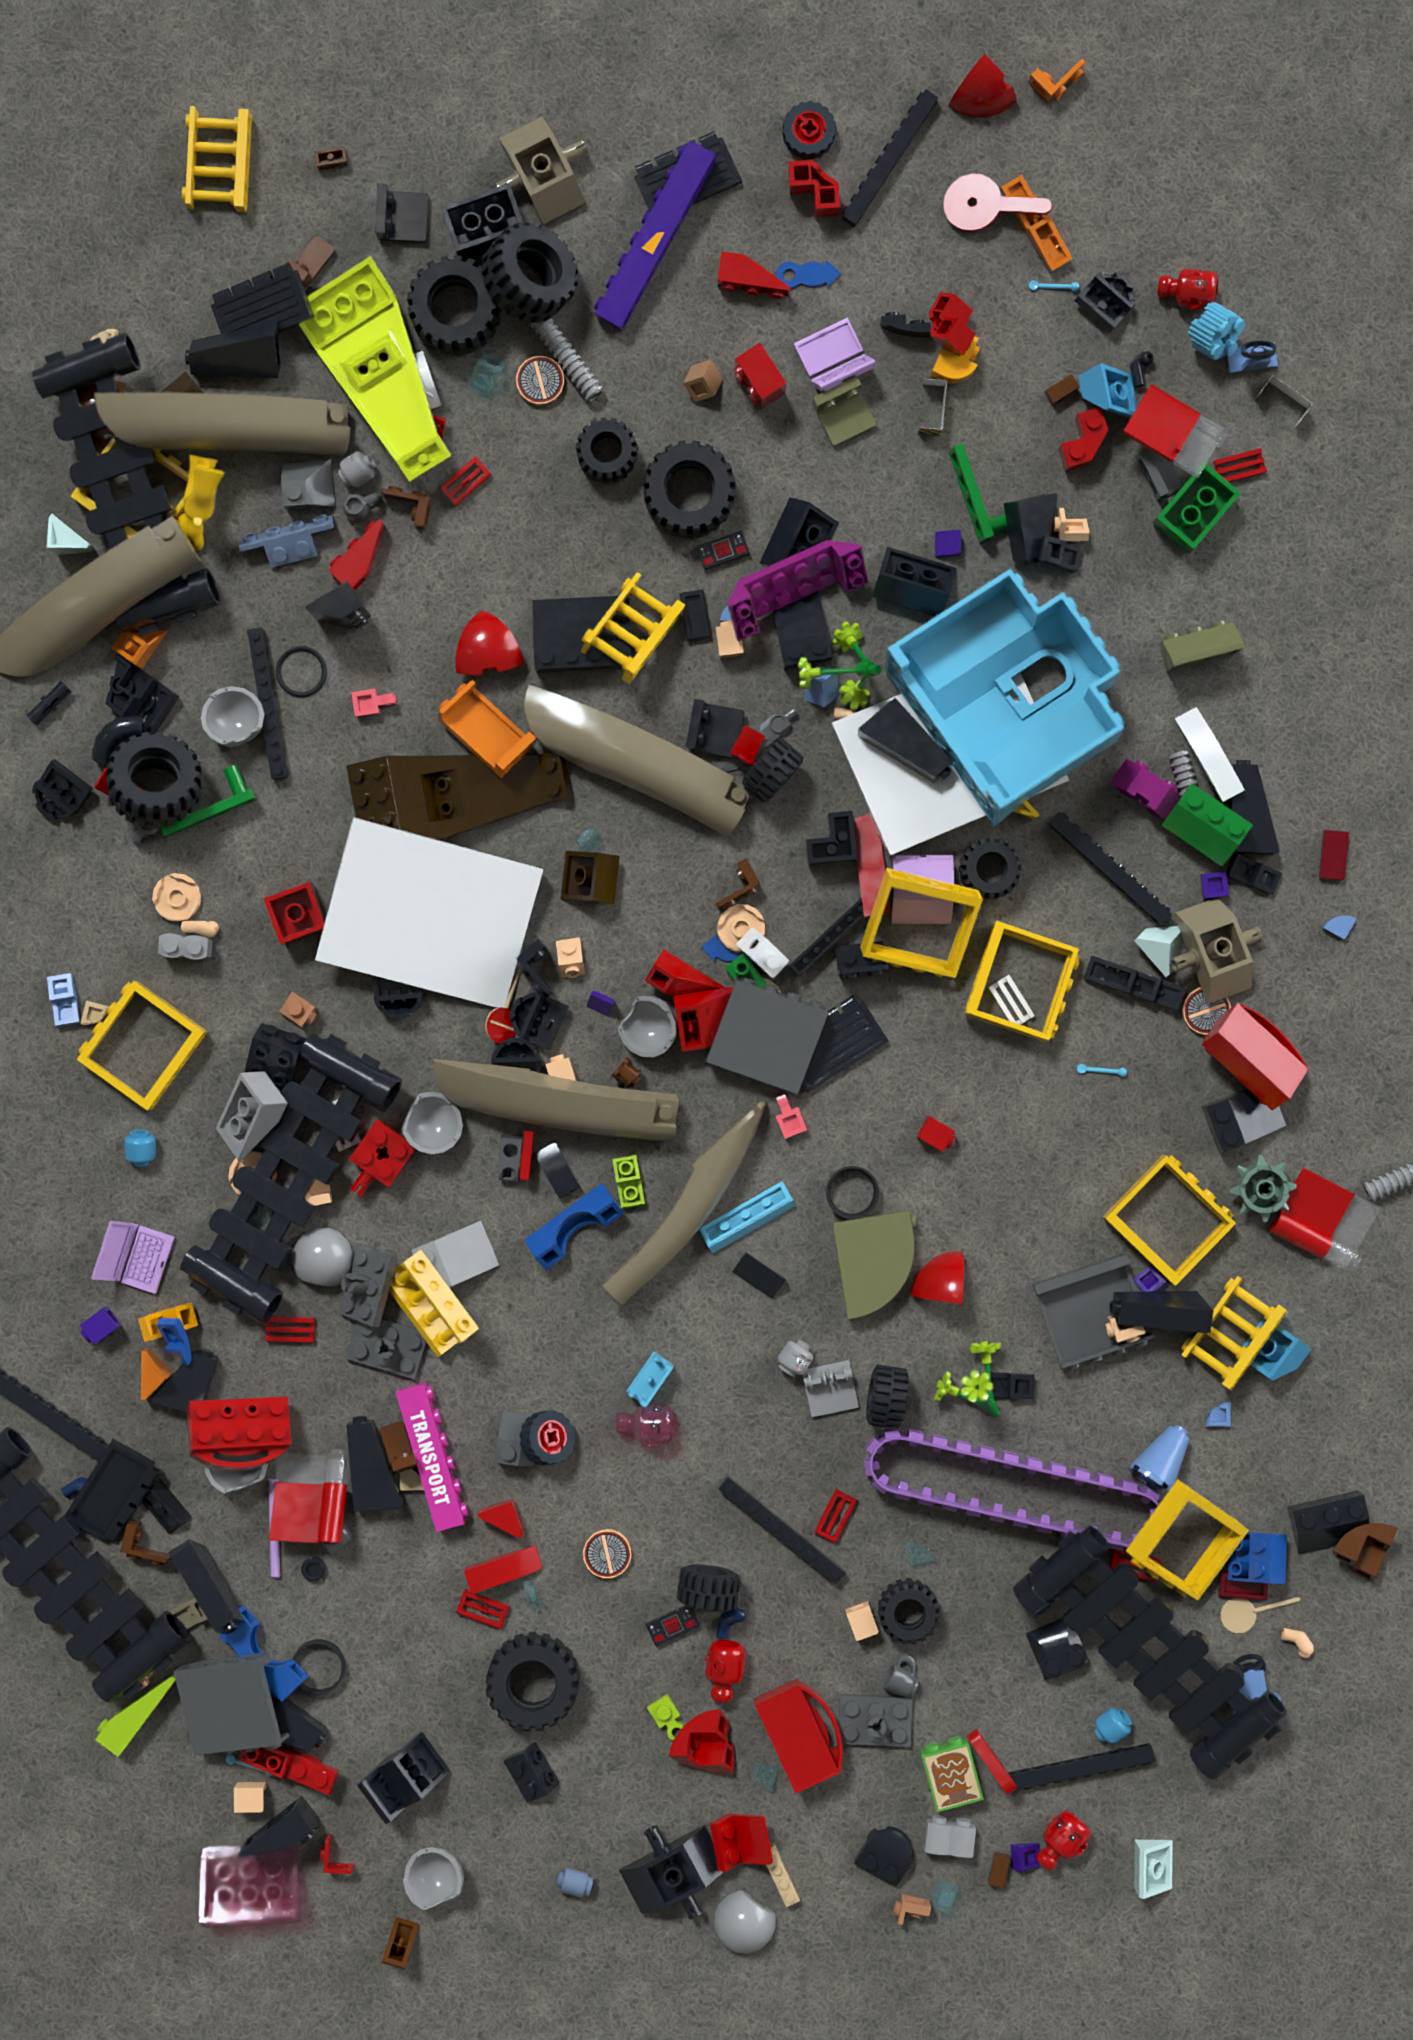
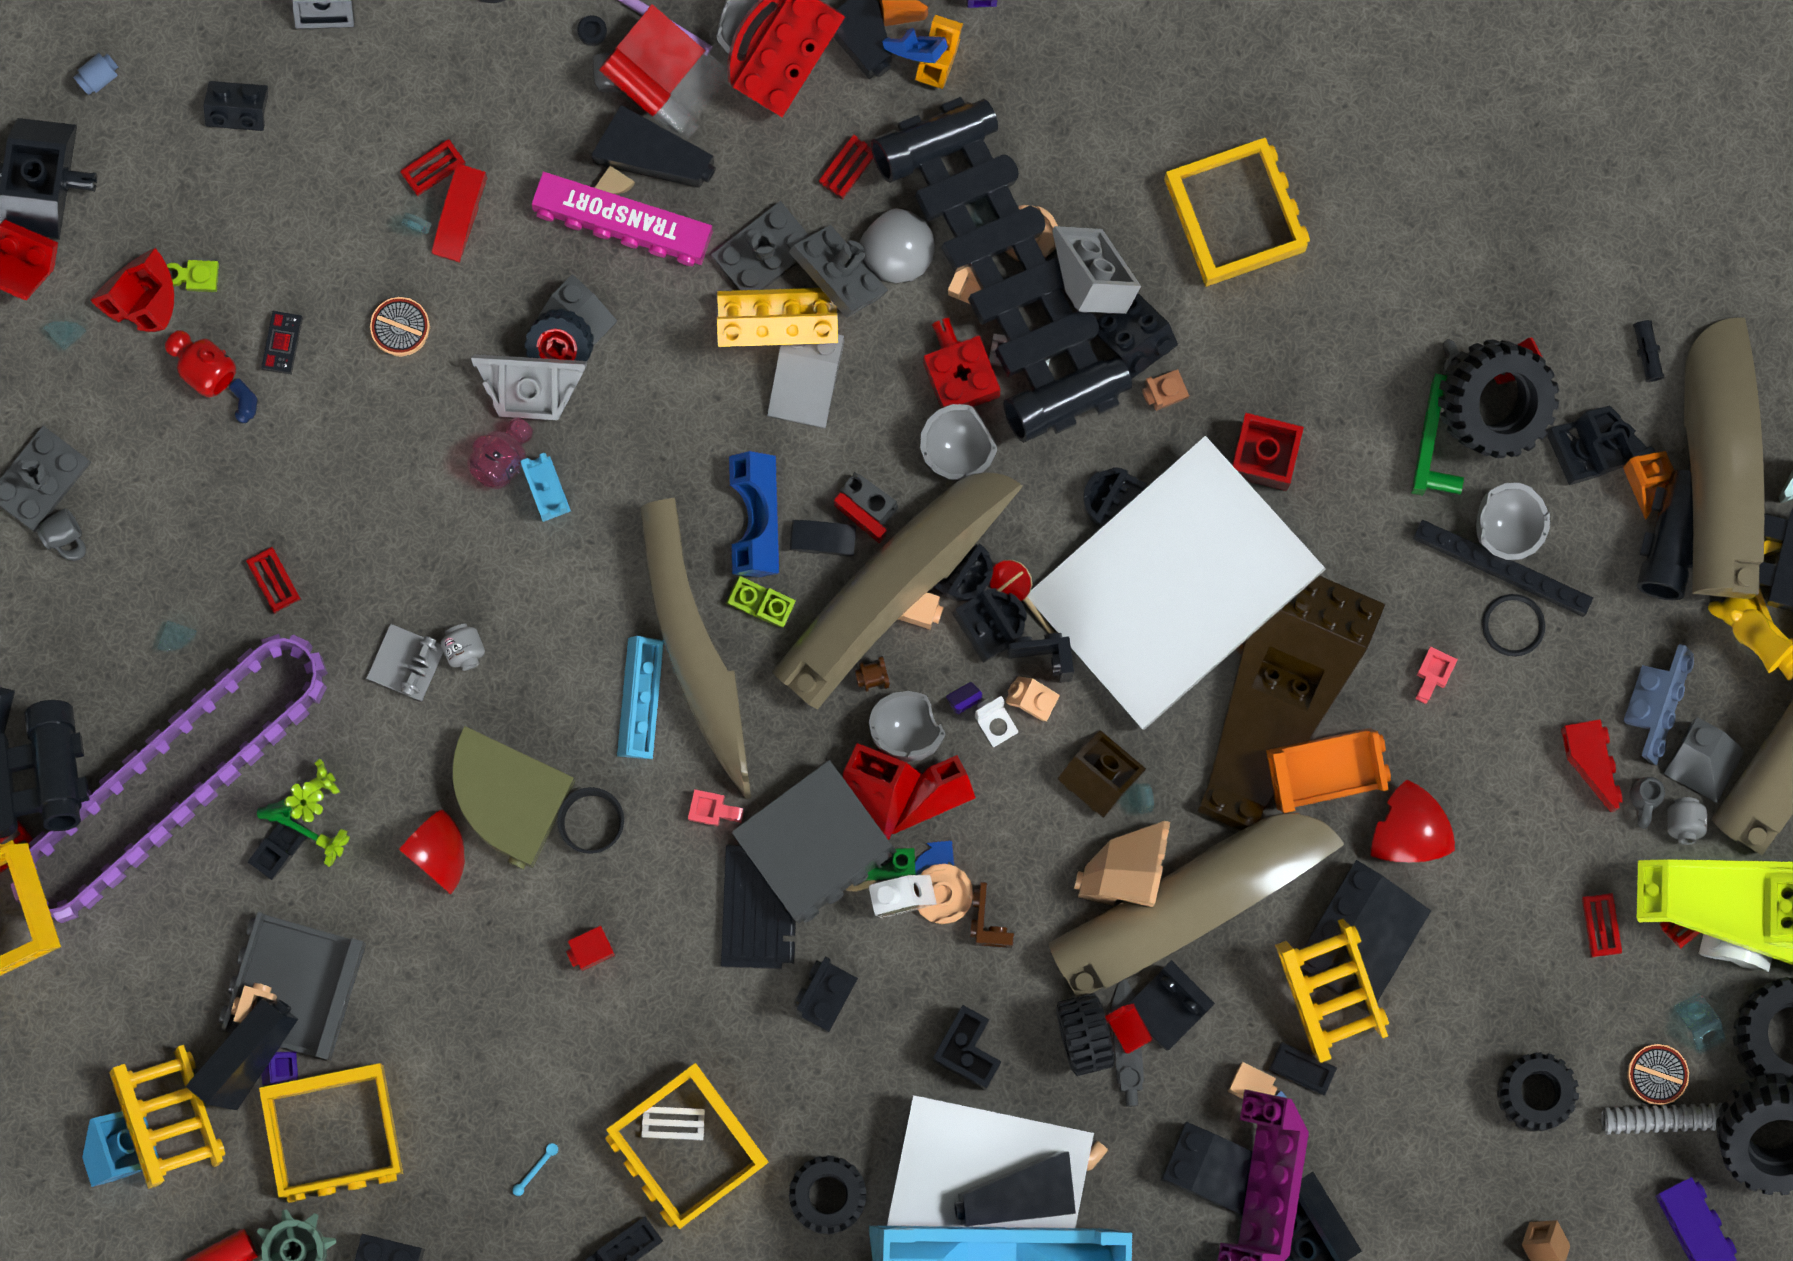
camera: 120 degrees right, 10 degrees down
(60, 792) = (1550, 301): black slope -> none
(64, 1000) = (1334, 167): slope -> none
(93, 1013) = (1302, 186): tan tile -> none
(113, 734) = (1572, 393): black cylinder -> none
(140, 1147) = (1133, 141): dark azure head -> none
(145, 1261) = (1017, 74): lavender piece -> none
(180, 904) = (1358, 355): light nougat tile -> none
(180, 946) = (1311, 316): light grey brick -> none
(203, 928) = (1315, 349): light nougat arm -> none
(340, 608) = (1552, 707): black slope -> none
(398, 1447) = (654, 191): reddish brown bracket -> none
(419, 513) = (1598, 853): reddish brown bracket -> none
(504, 1516) = (510, 249): red slope -> none
(526, 1713) = (309, 132): black tyre -> none
(589, 1438) = (529, 385): none -> light grey wing
(597, 979) = (990, 710): none -> white bracket
(643, 816) = (1126, 868): none -> light nougat brick
(689, 456) = (1481, 1143): black tyre -> none
(708, 1588) = (293, 400): black tyre -> none
(722, 550) = (1352, 1144): tile -> none
(759, 1275) = (573, 669): black slope -> none
(781, 1530) = (298, 515): black piece -> none
(800, 1734) = (81, 392): red piece -> none
(823, 689) = (1140, 1149): medium blue panel -> none
(828, 938) = (875, 1012): black piece -> none
(852, 692) = (1110, 1179): lime plant -> none
(862, 1621) = (148, 532): light nougat panel -> none
(869, 863) = (914, 1069): sticker -> none
(887, 1396) = (357, 711): black tyre -> none
(908, 1590) = (134, 608): black tyre -> none
(918, 908) = (855, 1108): piece -> none
(930, 887) = (850, 1111): yellow window -> none
(1162, 1459) = (91, 952): medium blue cone -> none
(1220, 1416) = (91, 1044): medium blue tile -> none

